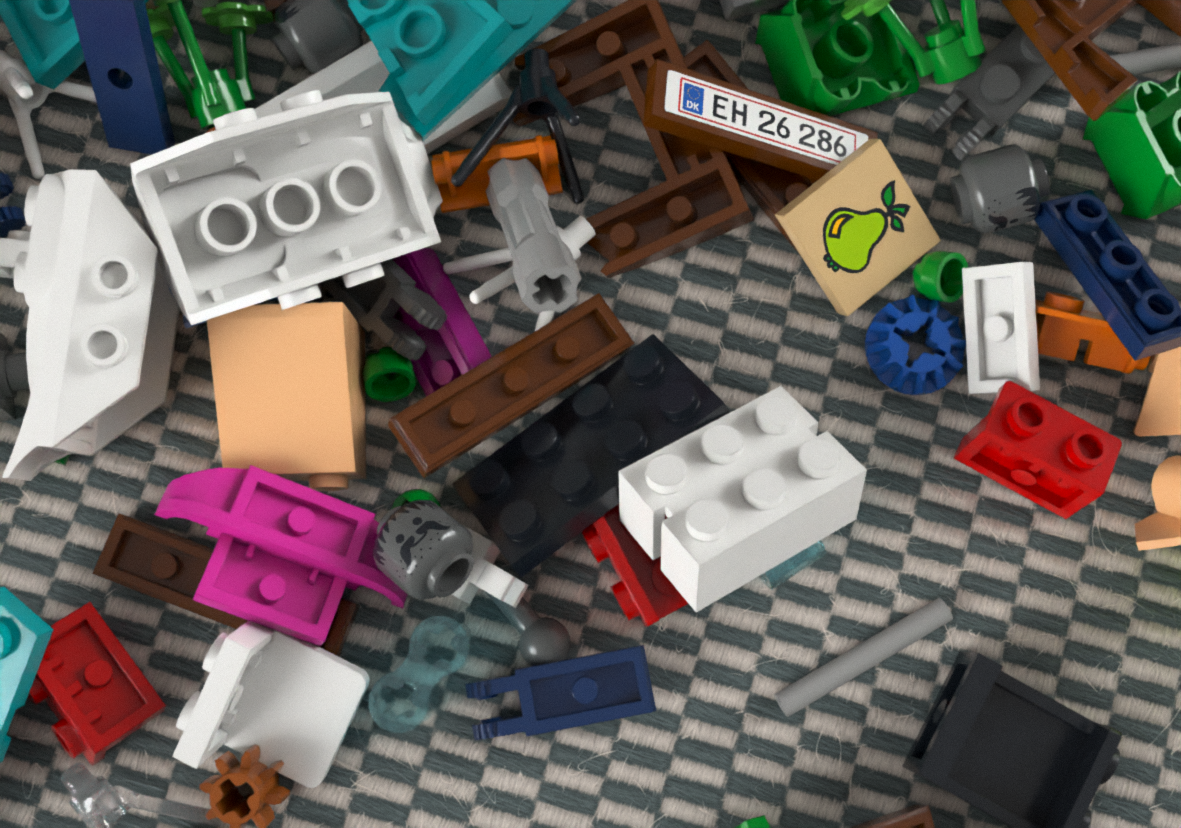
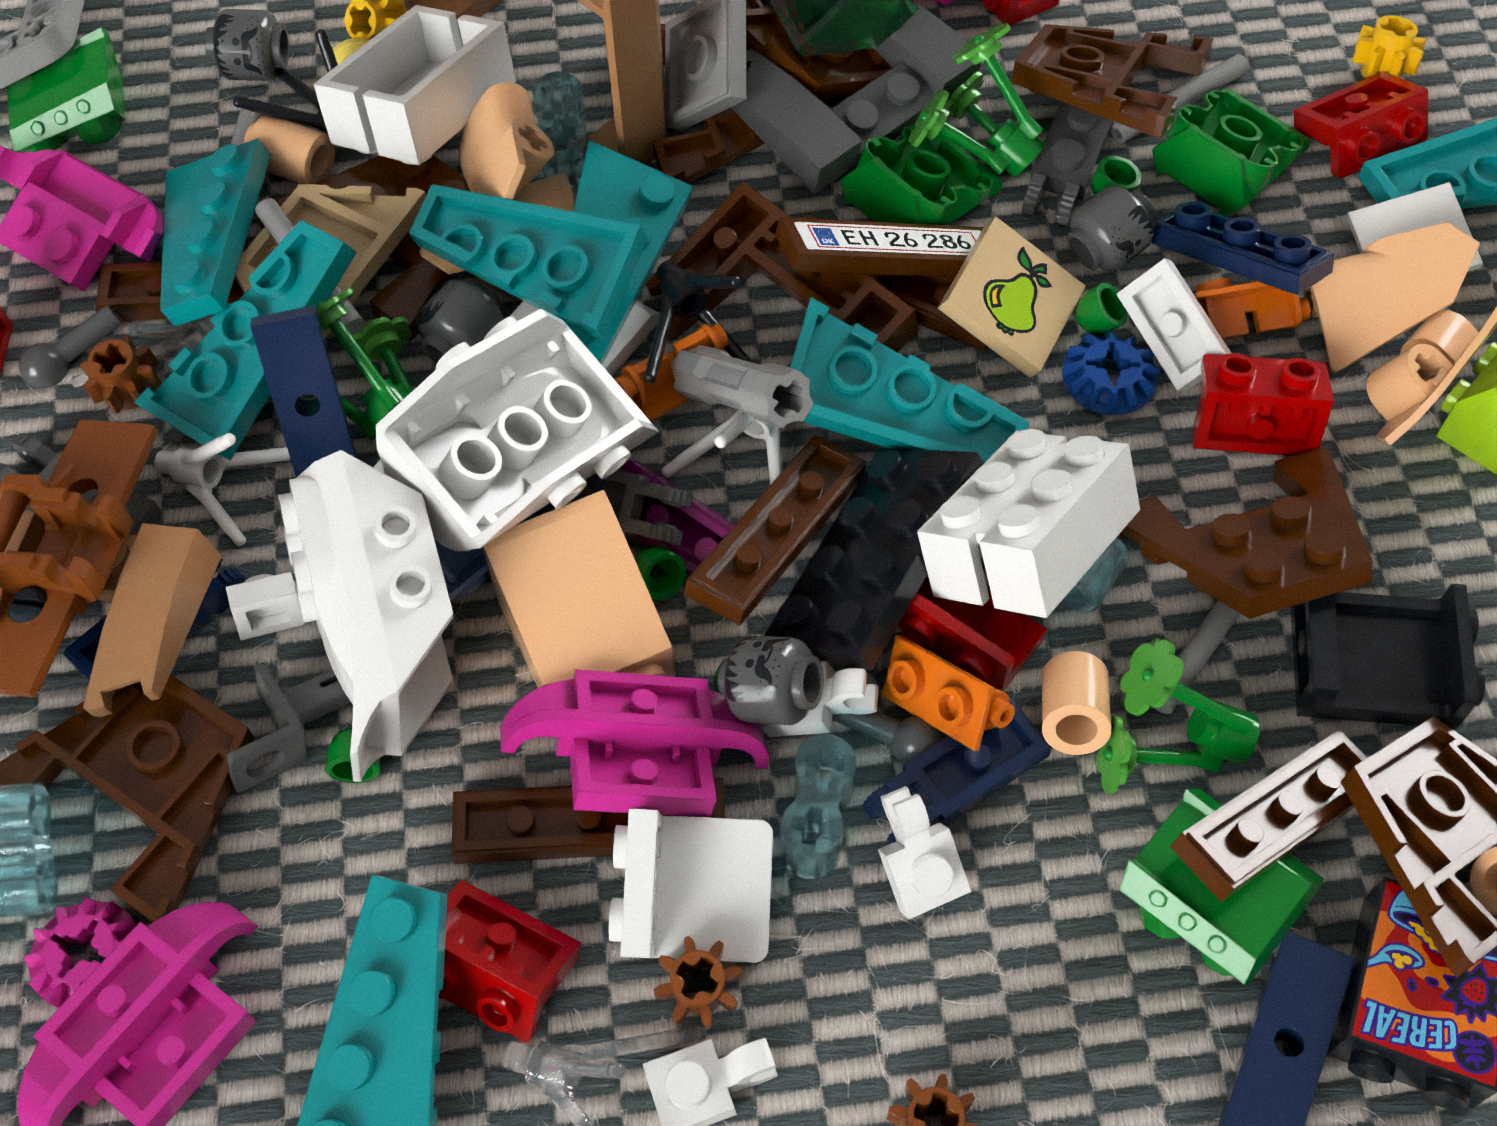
camera: 20 degrees left, 20 degrees down
(485, 766) = (924, 858): none -> white plate
(574, 598) = (944, 694): none -> orange hinge
(674, 285) = (890, 398): none -> teal wing
(698, 680) = (1076, 703): none -> light nougat brick
(759, 724) = (1215, 727): none -> plant
(961, 622) = (1271, 554): none -> reddish brown wing
(1041, 135) = (1116, 171): none -> green hinge

